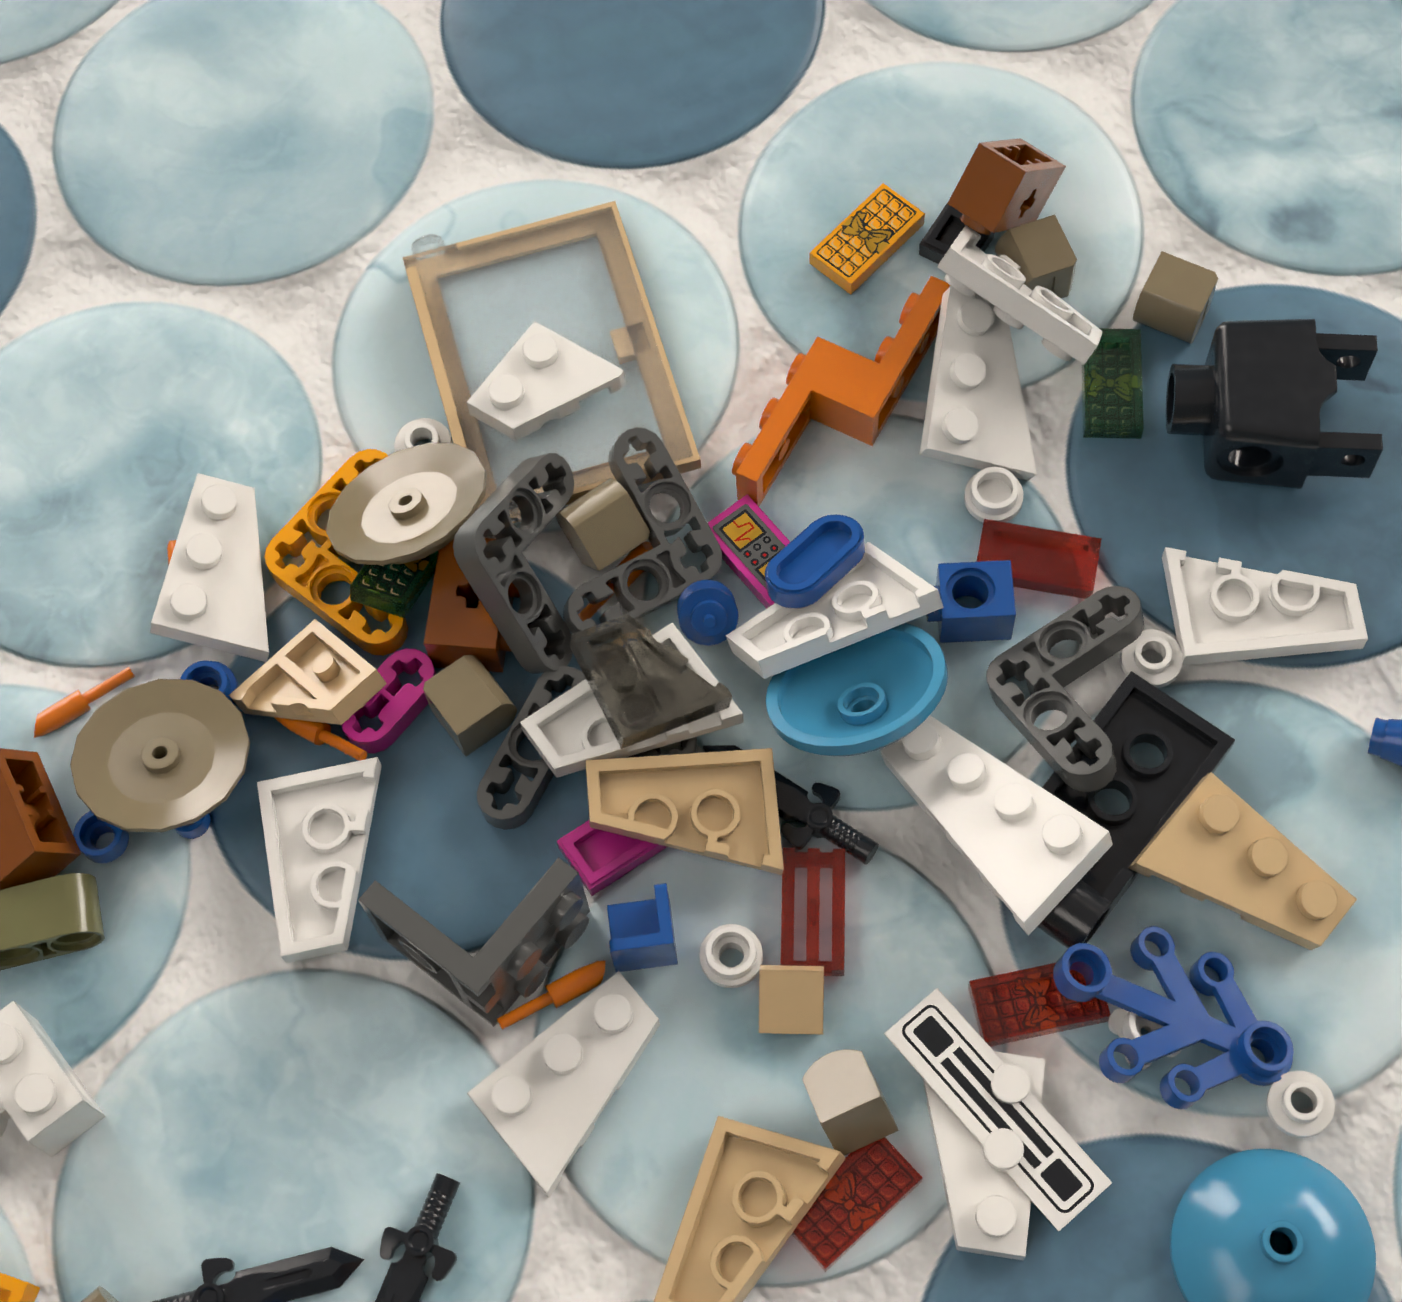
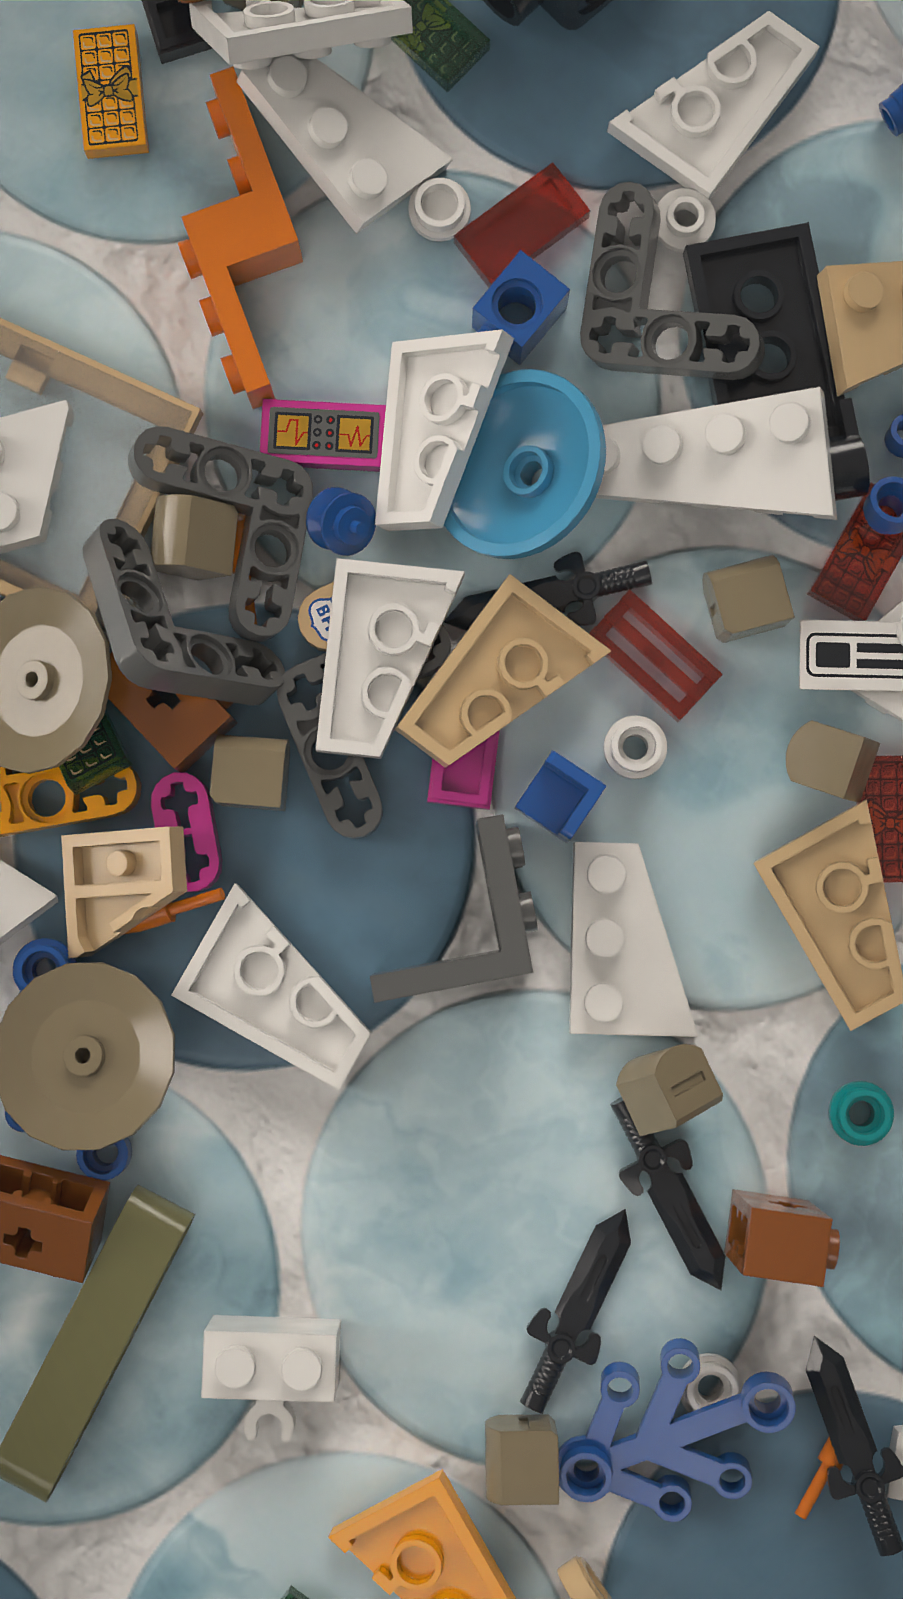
camera: 55 degrees left, 20 degrees up
(484, 1198) = (668, 1088): none -> dark tan piece
(559, 992) = (548, 898): orange piece -> none
(641, 682) = (373, 627): clear smoke wing -> none
(791, 999) = (710, 732): tan tile -> none
(815, 561) = (377, 399): blue tile -> none
(915, 938) = (747, 598): none -> dark tan piece

